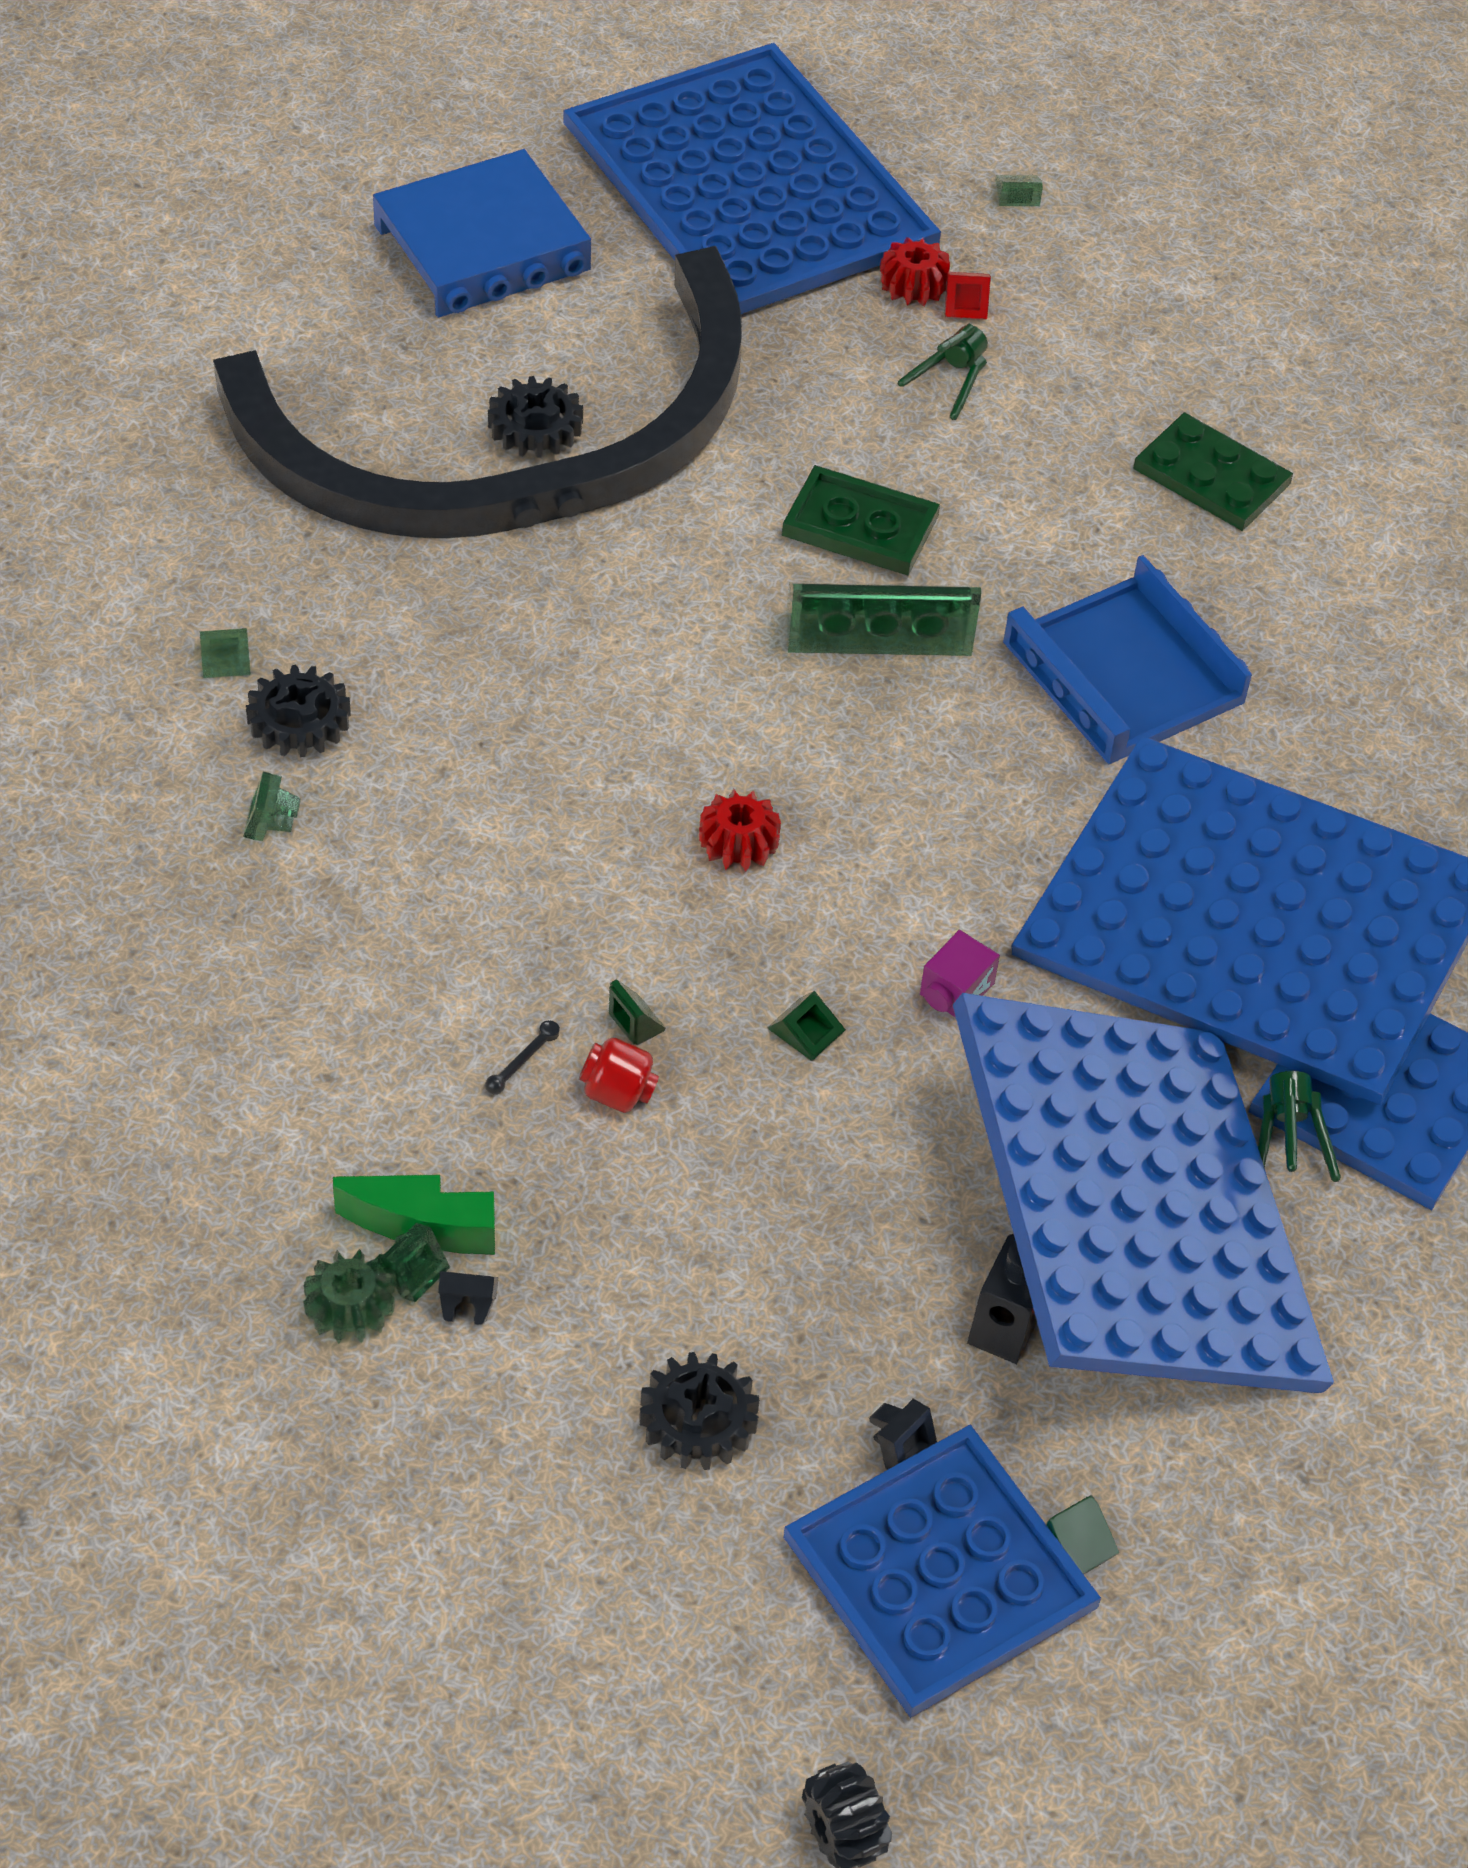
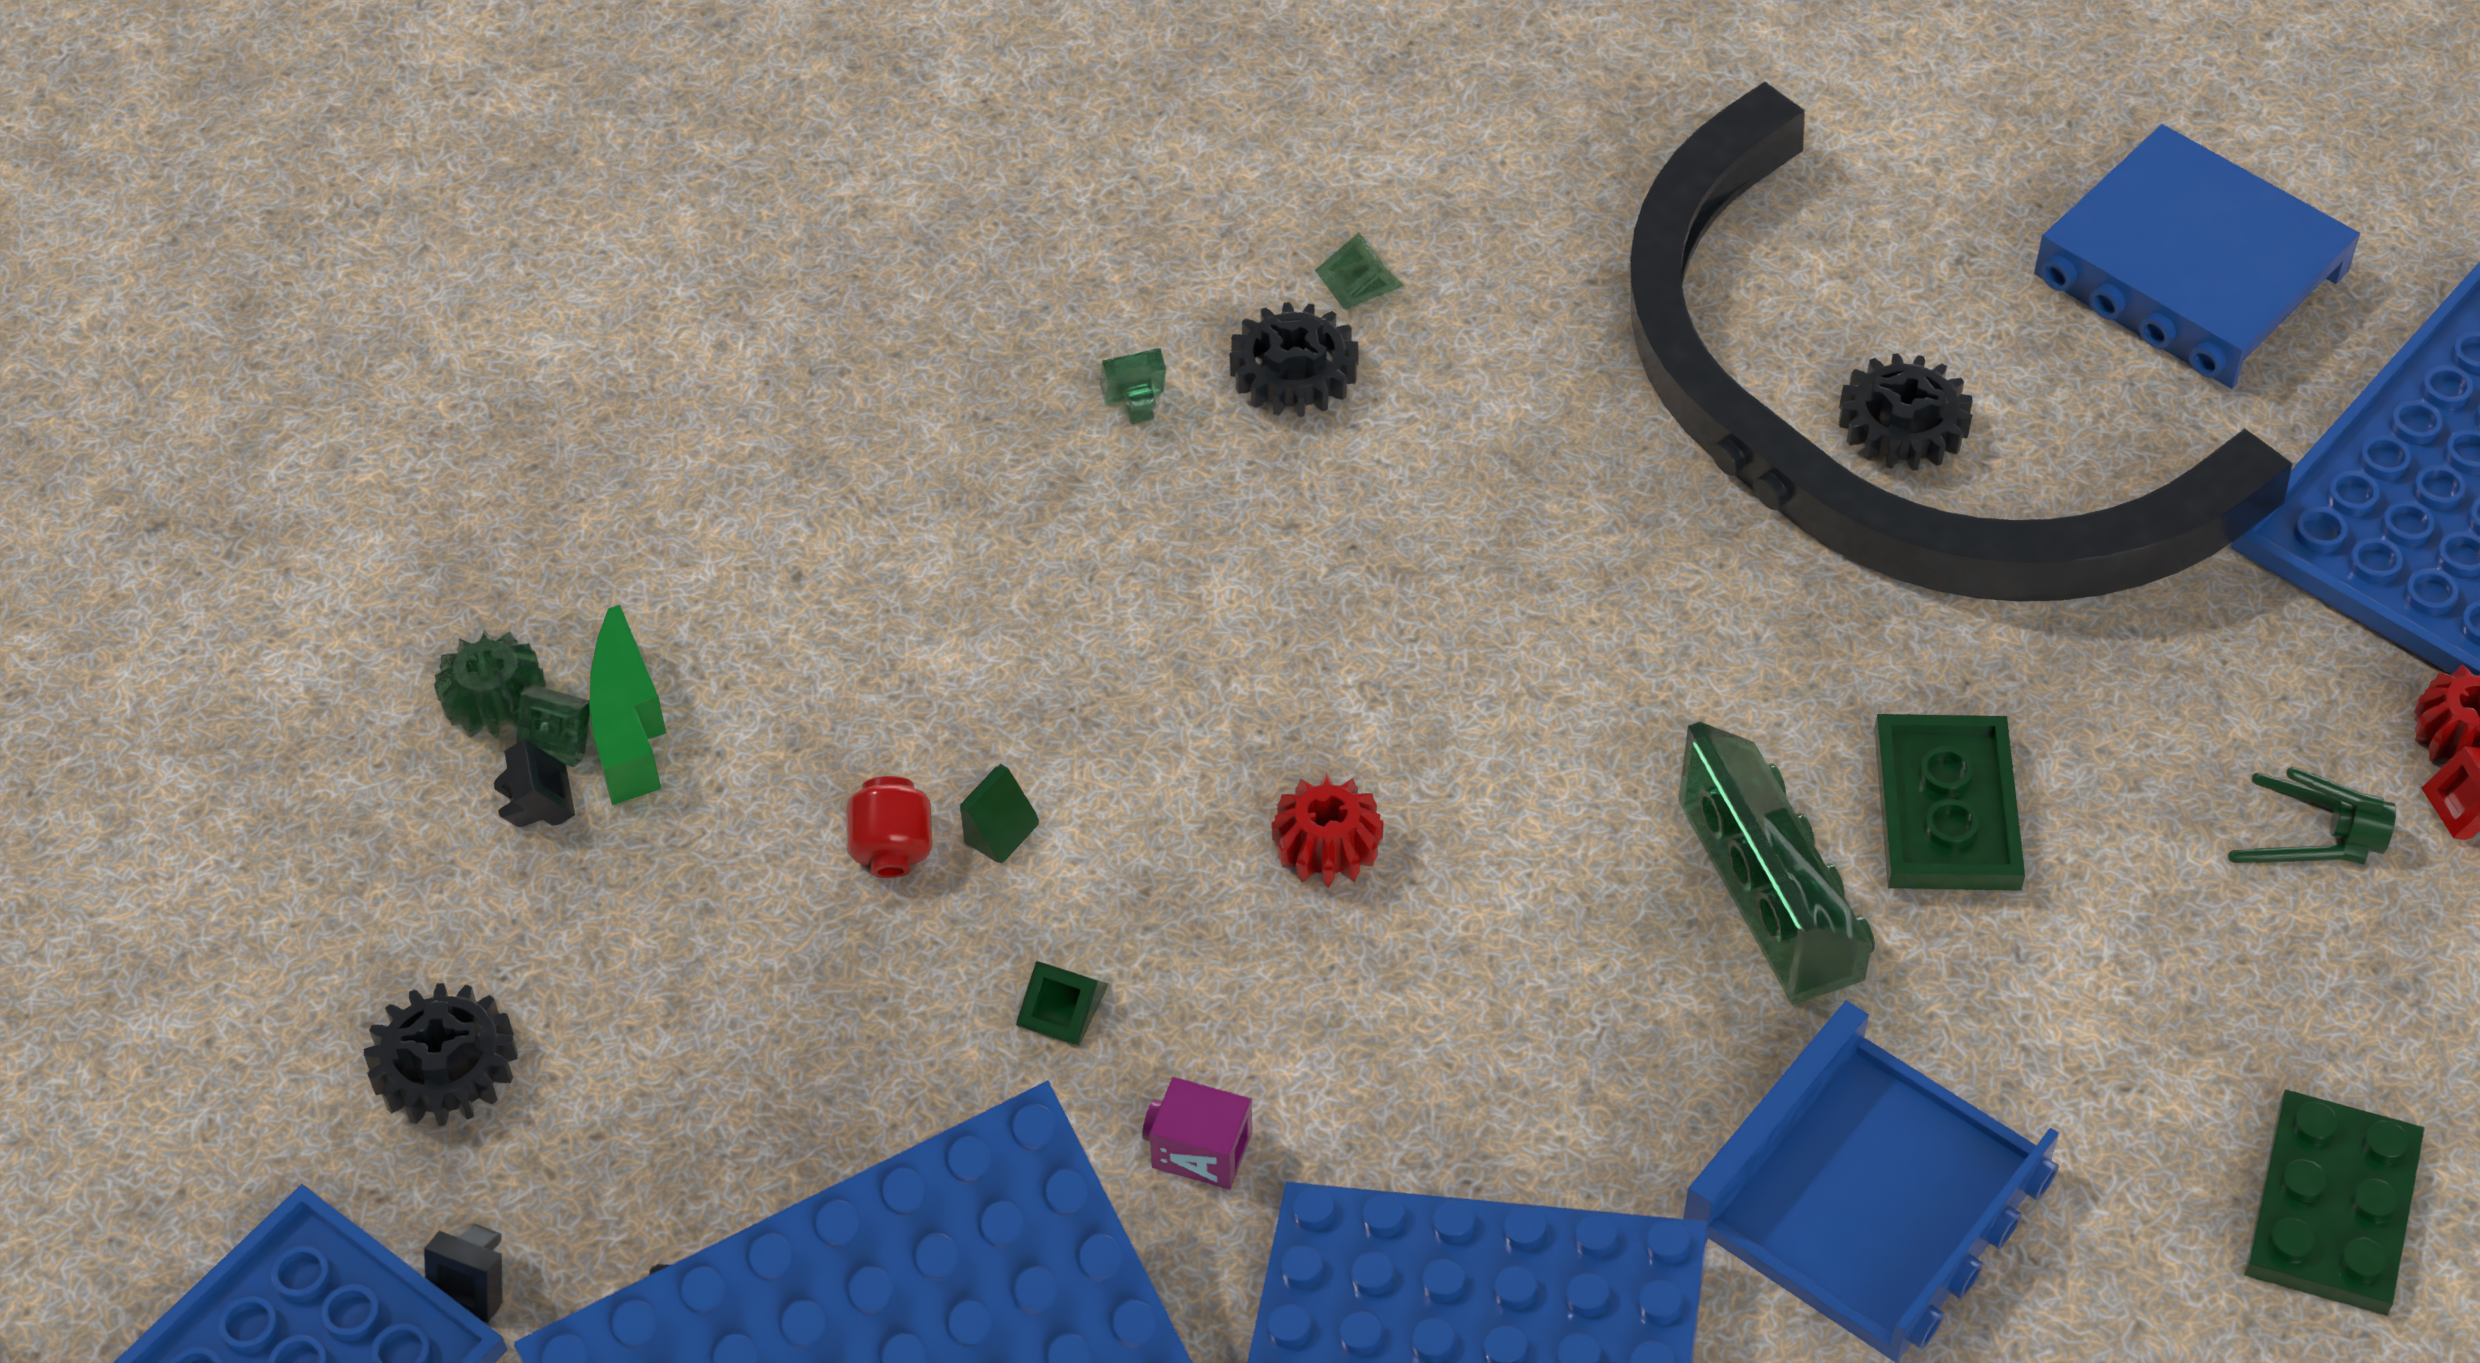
camera: 75 degrees right, 0 degrees up
(548, 1031) = (944, 750): black hinge -> none

